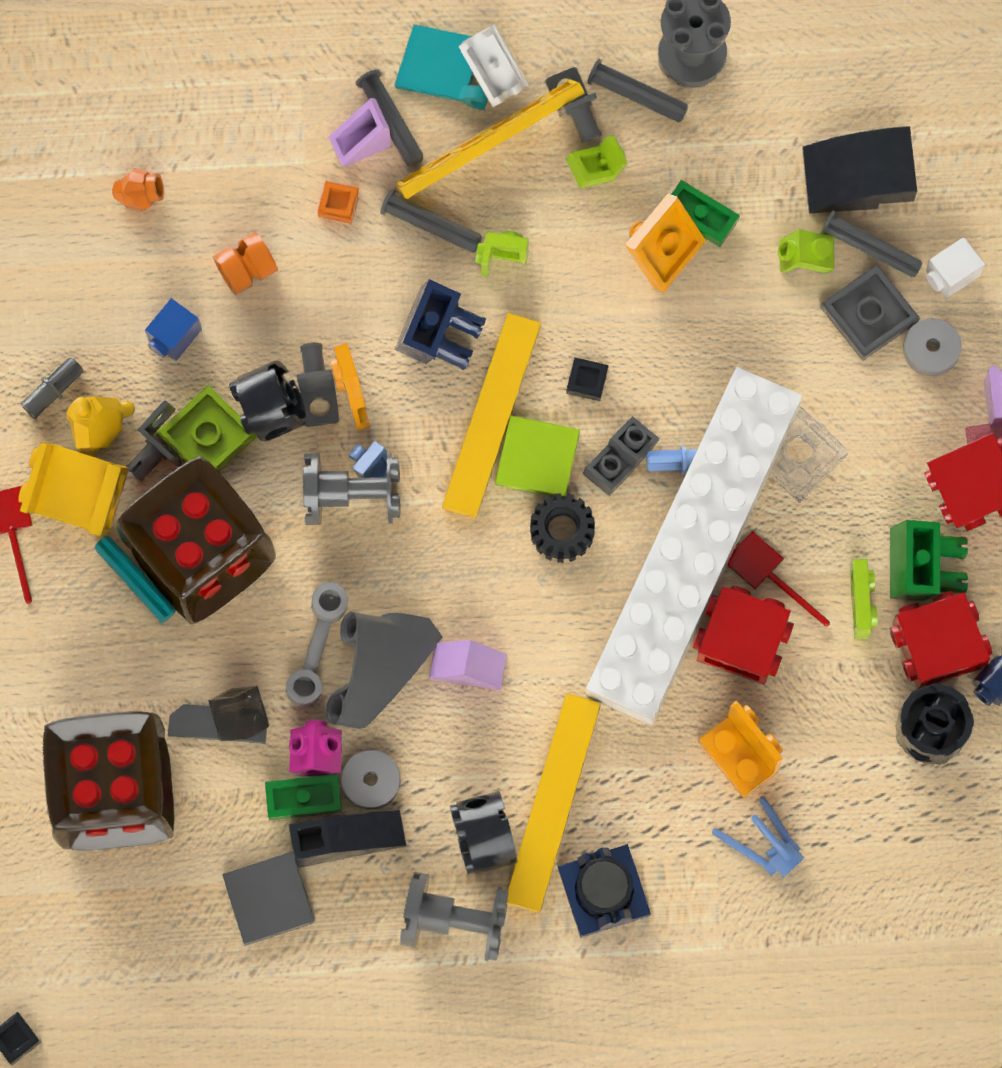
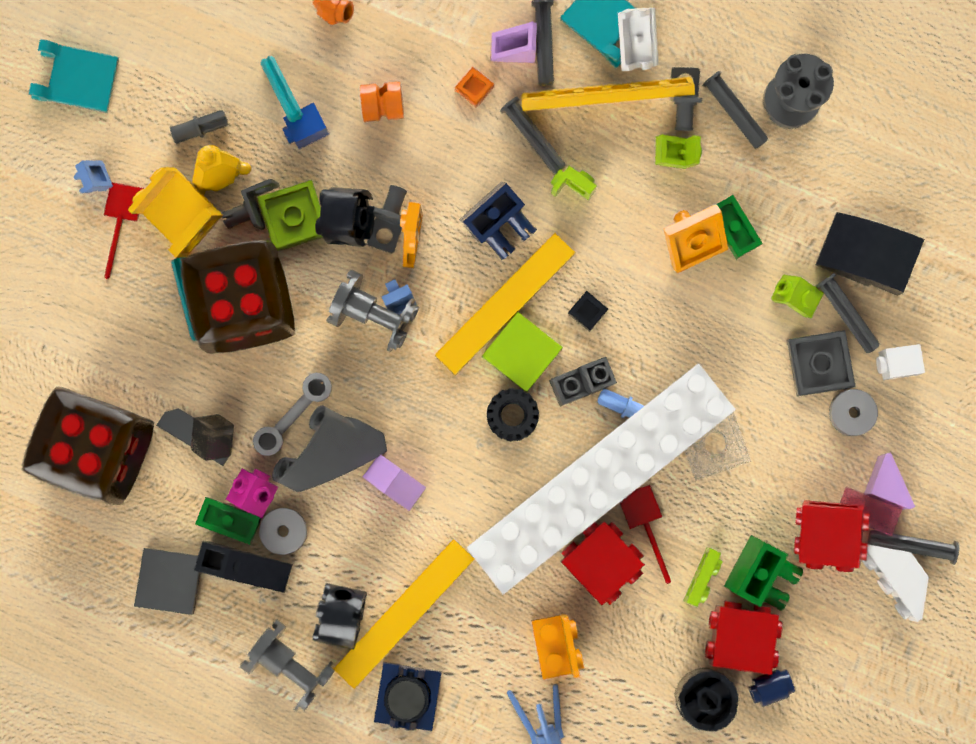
camera: 25 degrees right, 10 degrees up
(127, 301) = (281, 89): none -> teal axle

